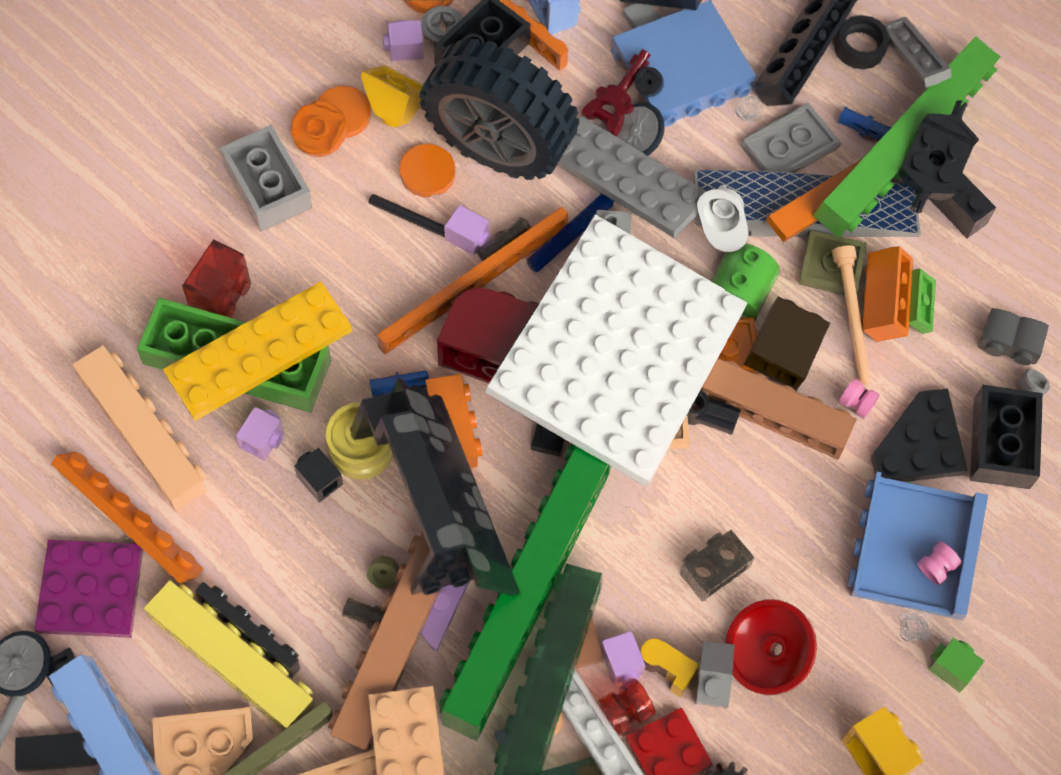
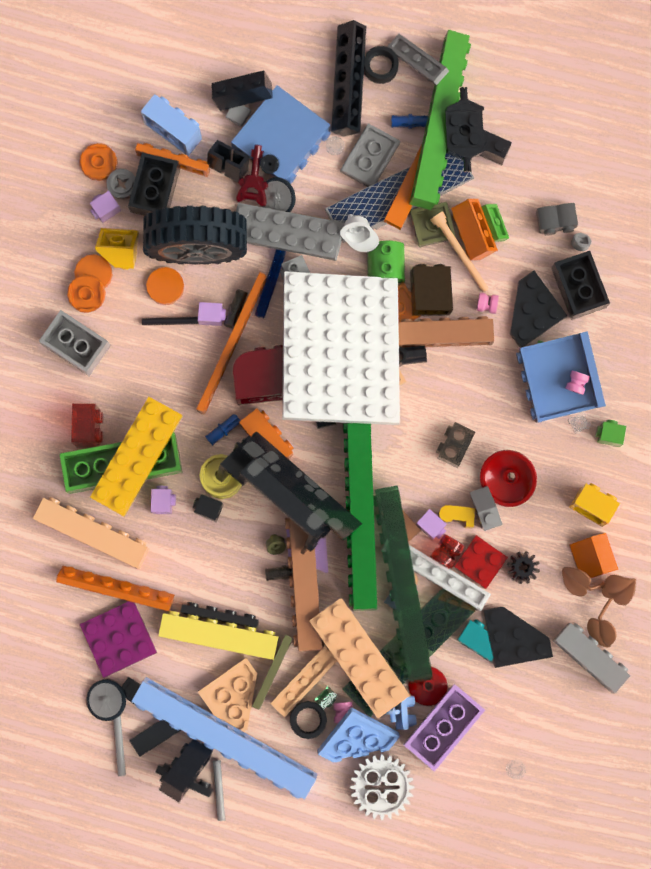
camera: 25 degrees left, 15 degrees up
(587, 55) = (220, 160): none -> black piece

